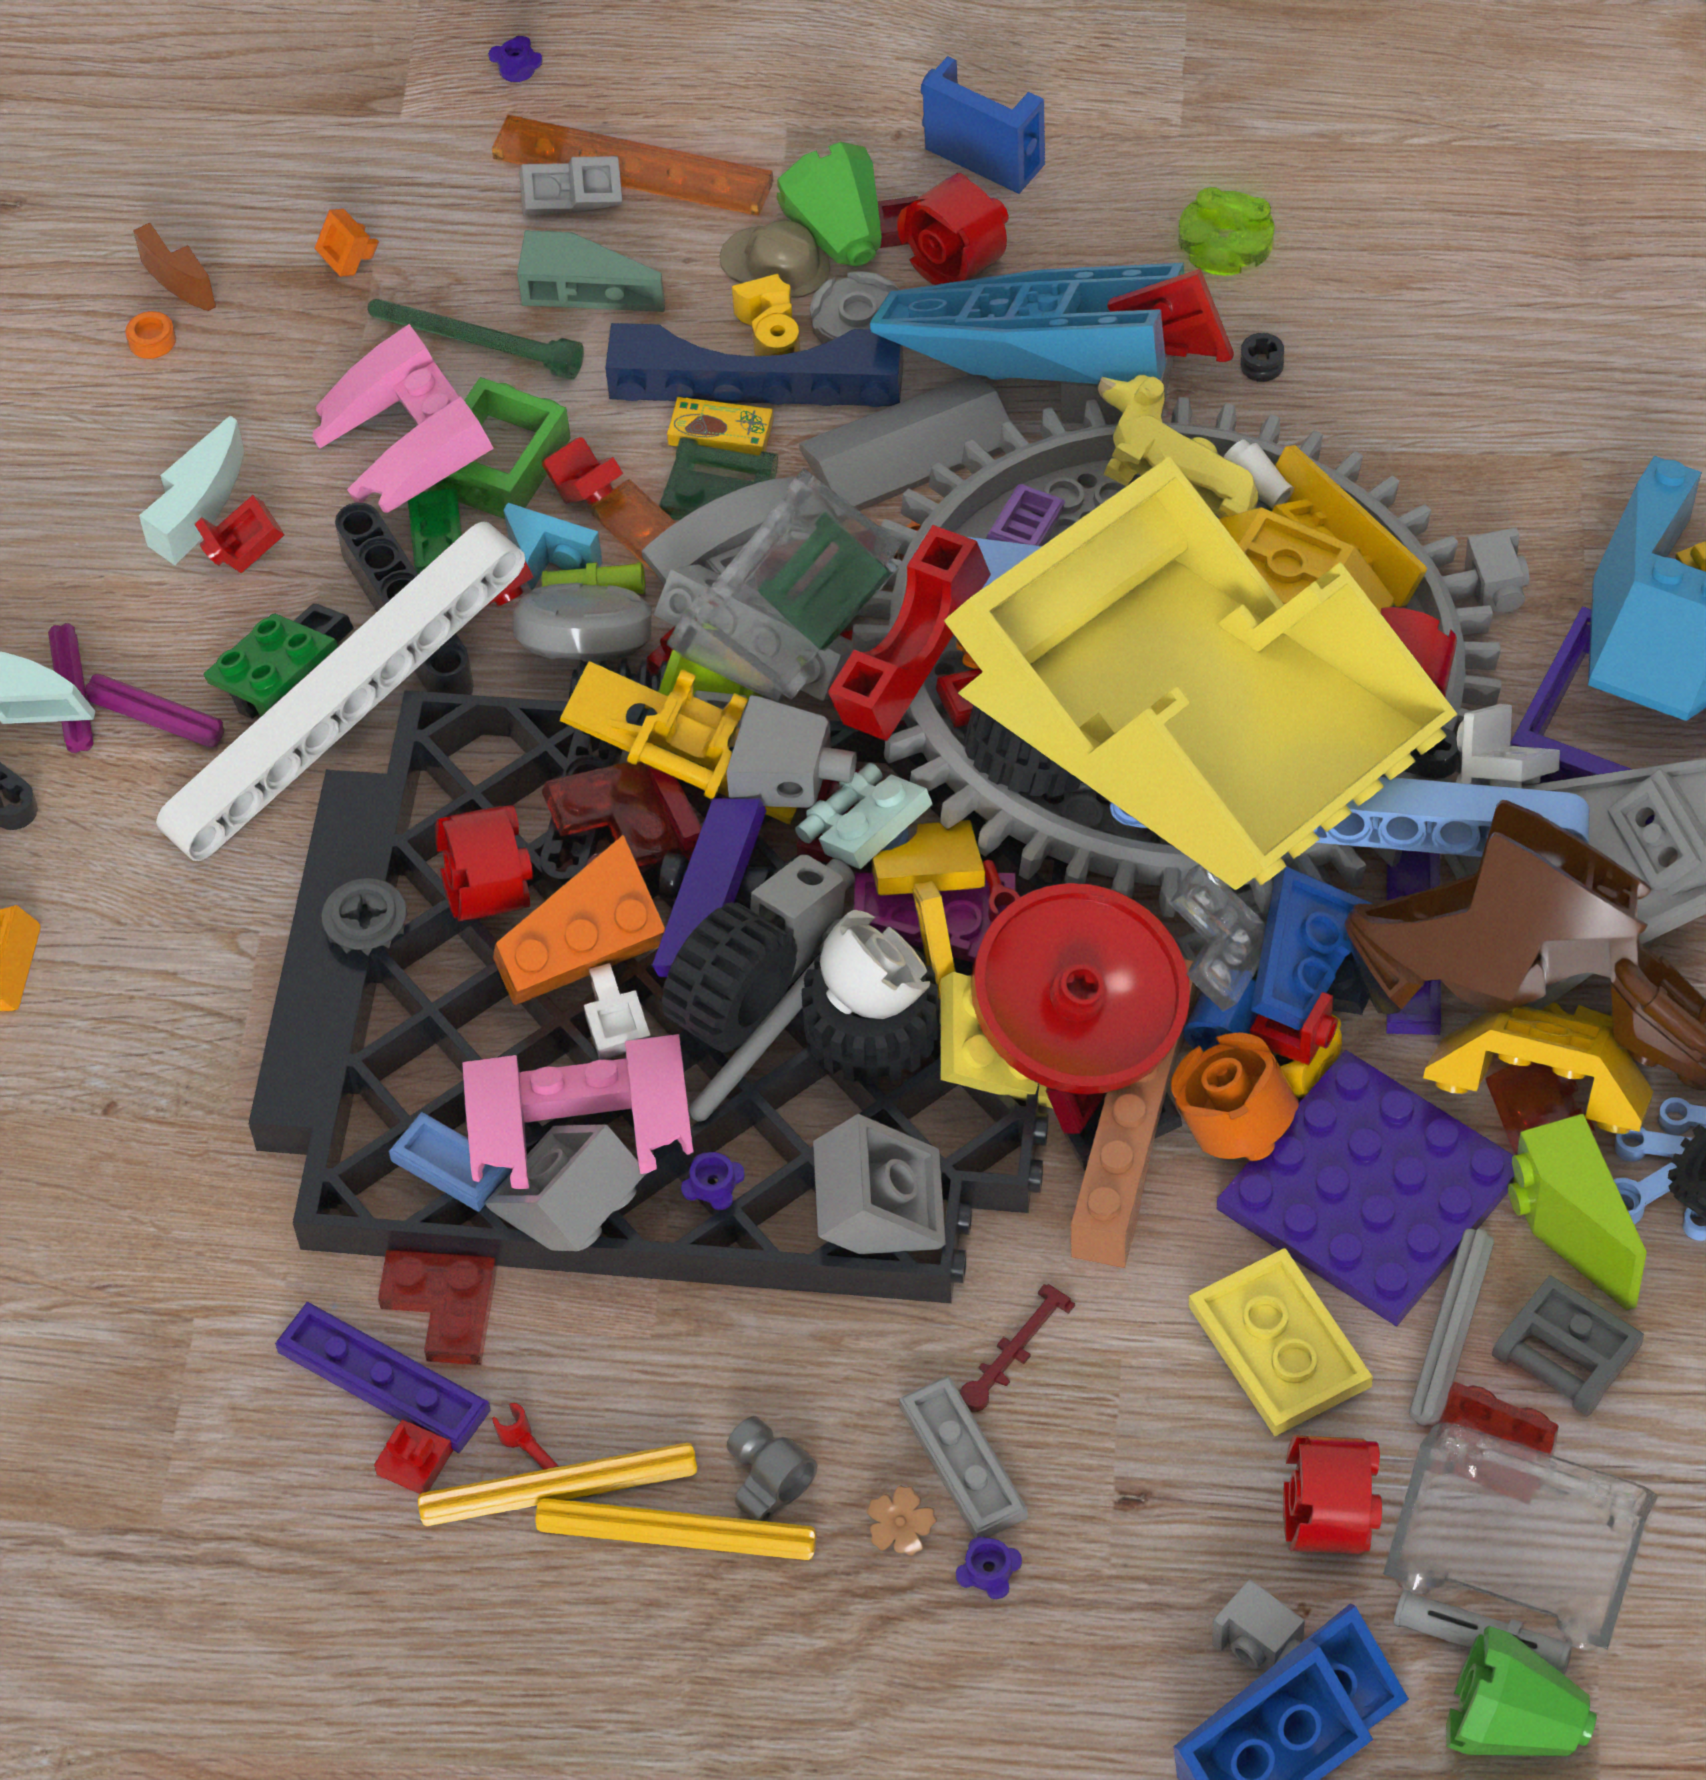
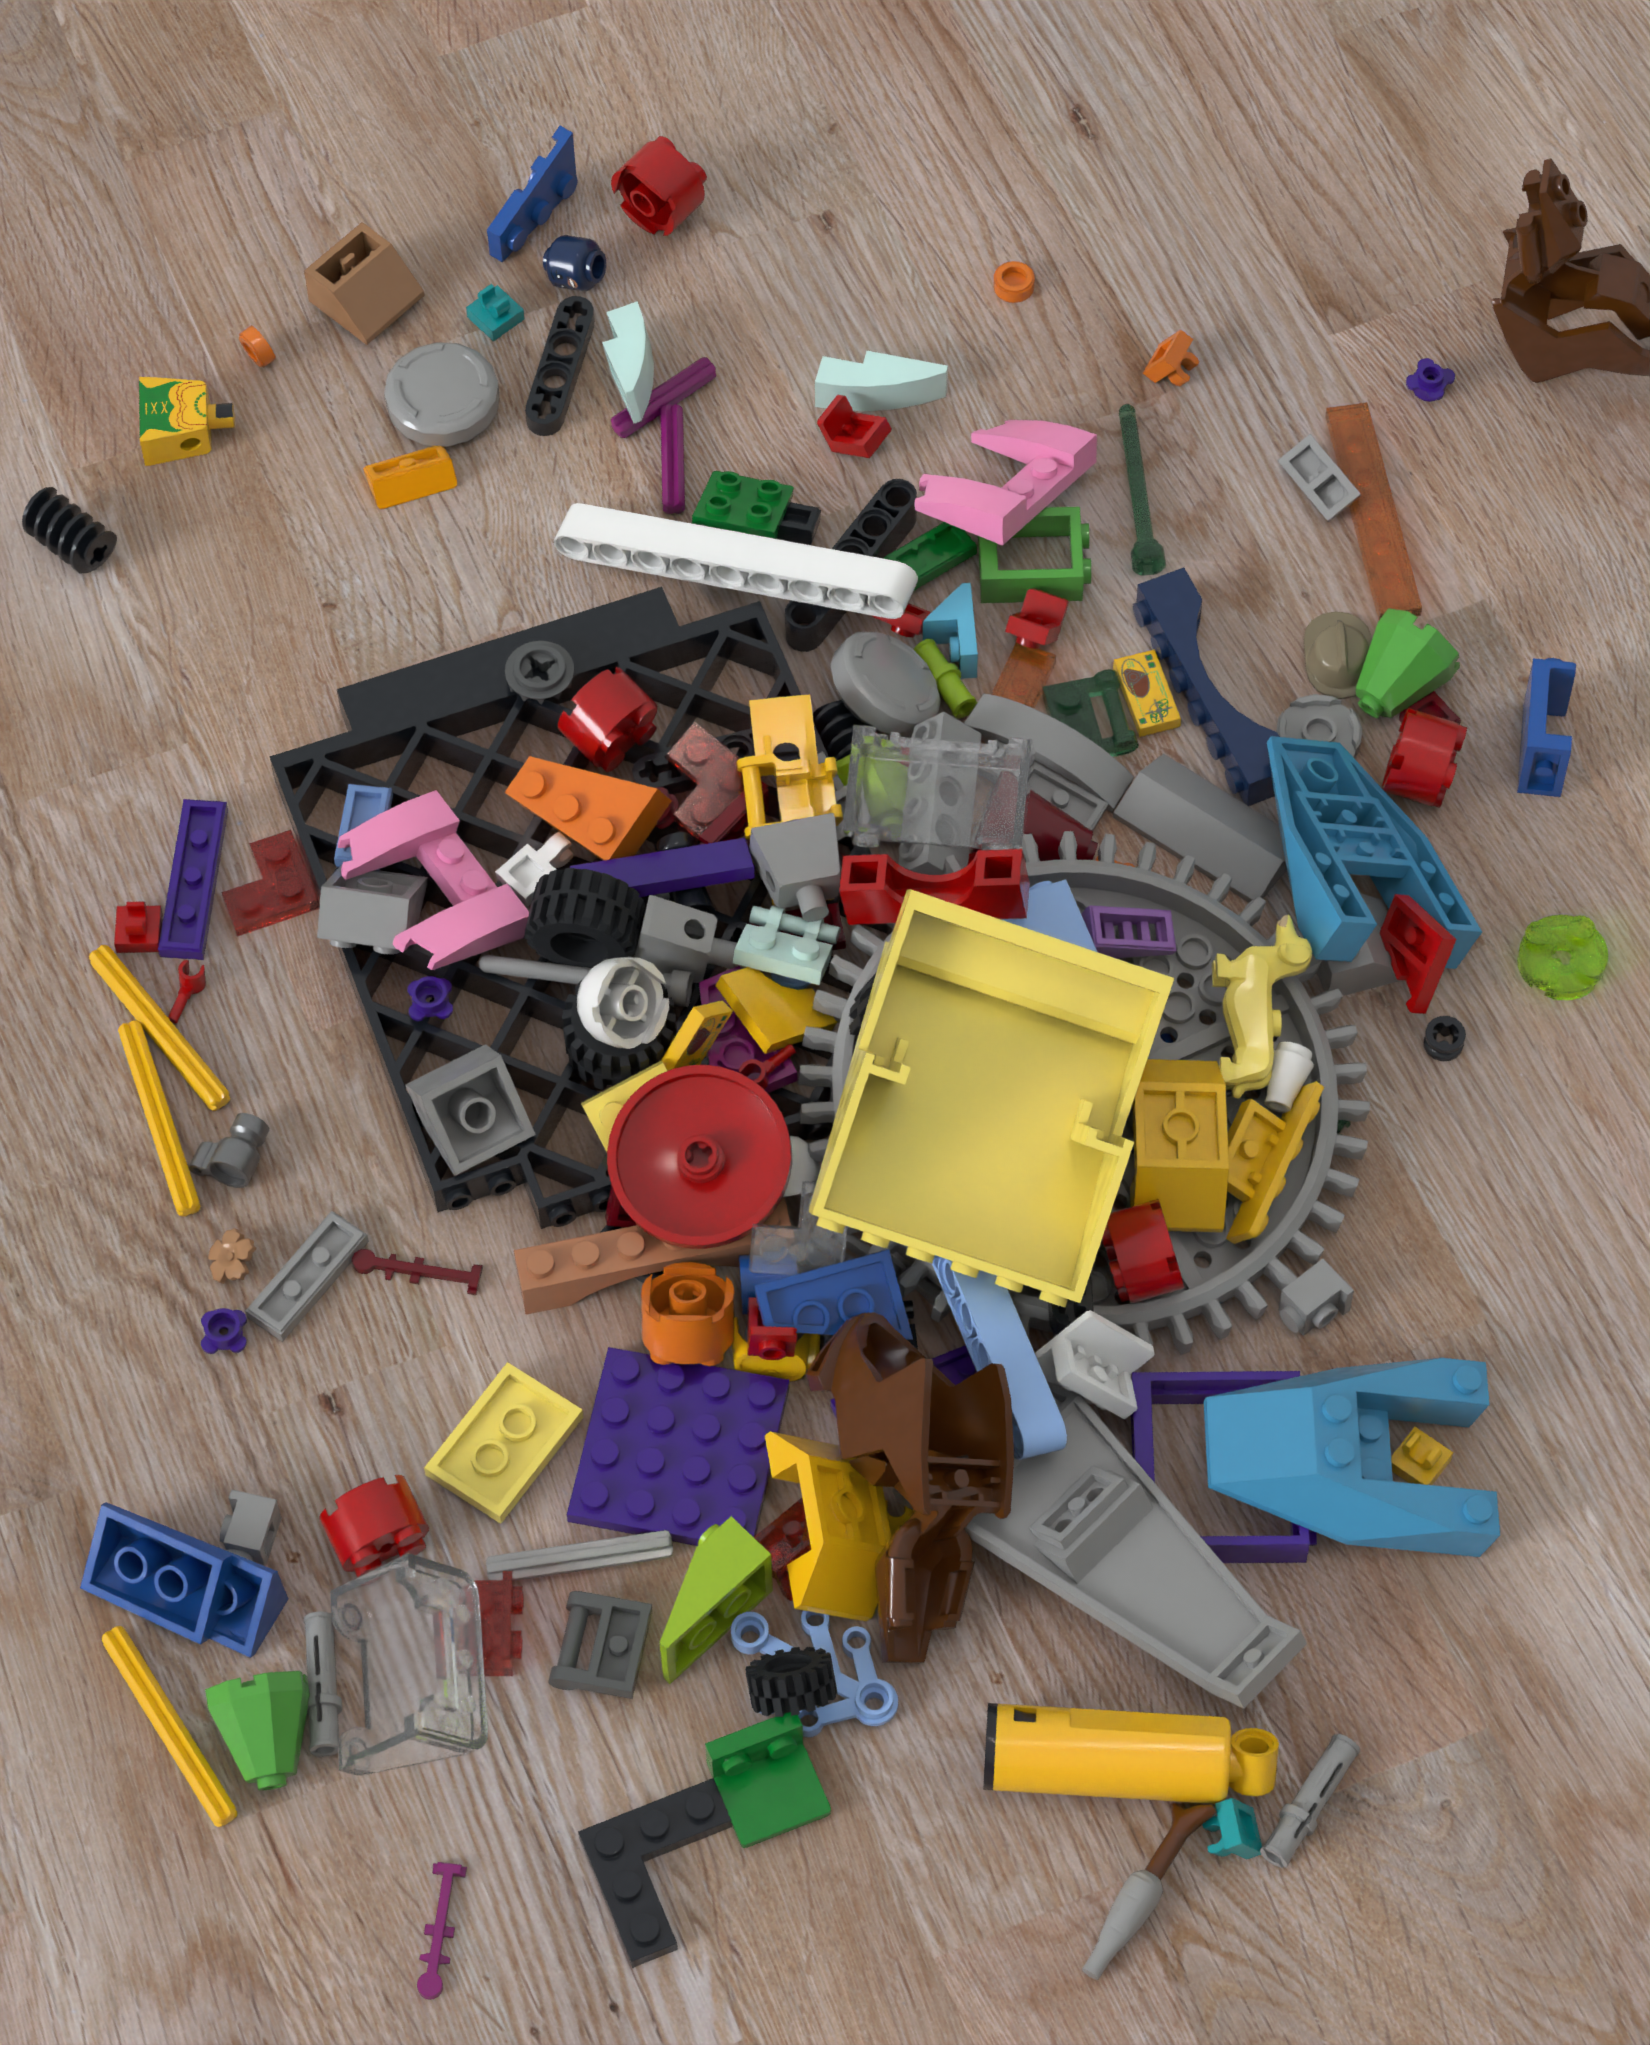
camera: 60 degrees right, 5 degrees up
(176, 270) = (1079, 261): dark orange slope -> none
(579, 273) = (1229, 515): sand green slope -> none
(768, 309) = (1255, 682): yellow leg -> none
(835, 592) = (956, 822): clear green plate -> none

